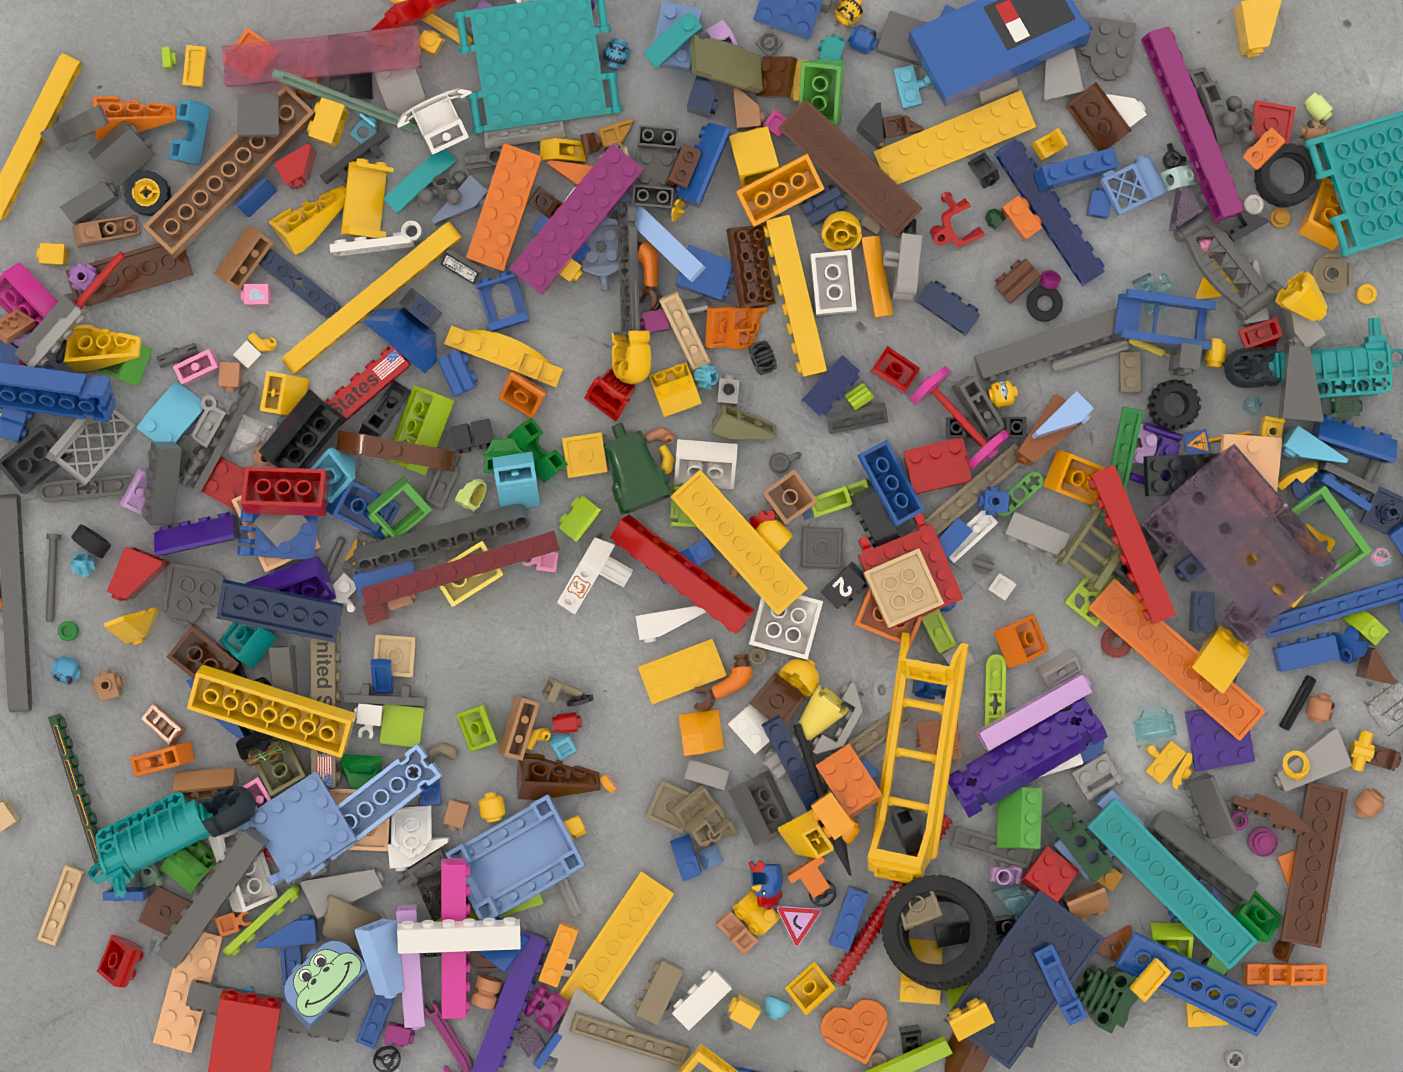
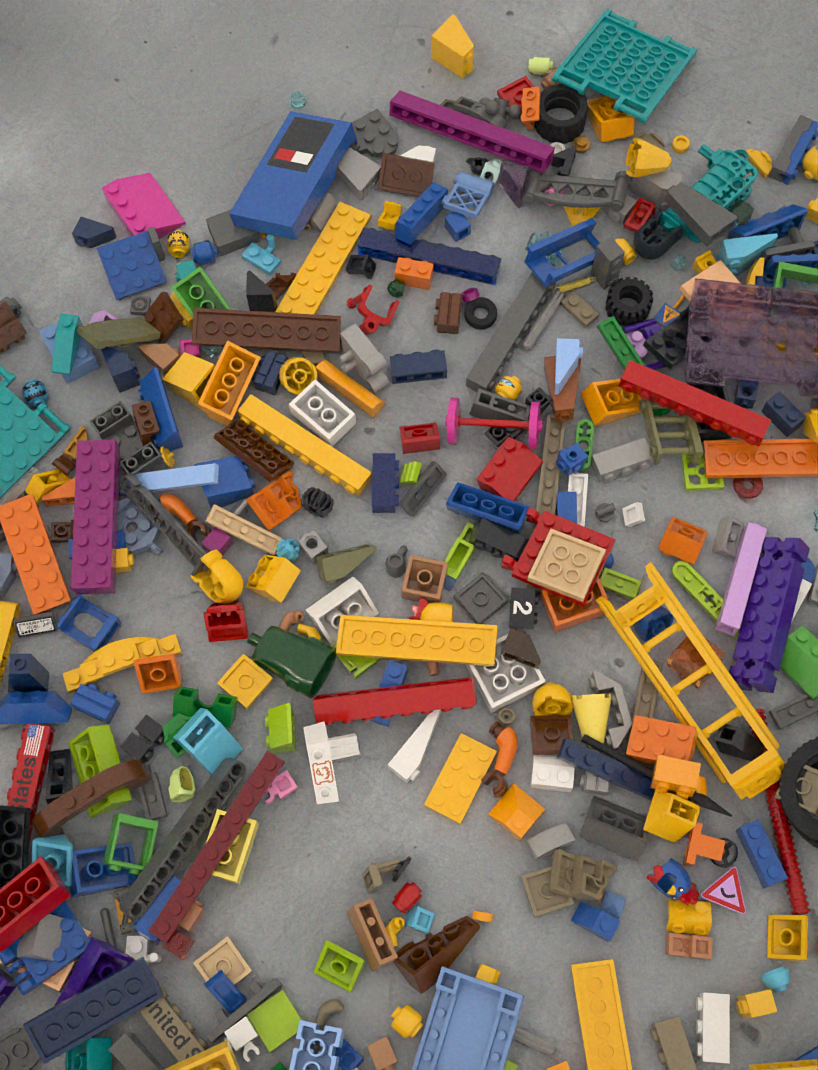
camera: 35 degrees left, 20 degrees down
(810, 619) = (521, 648): none -> dark brown slope

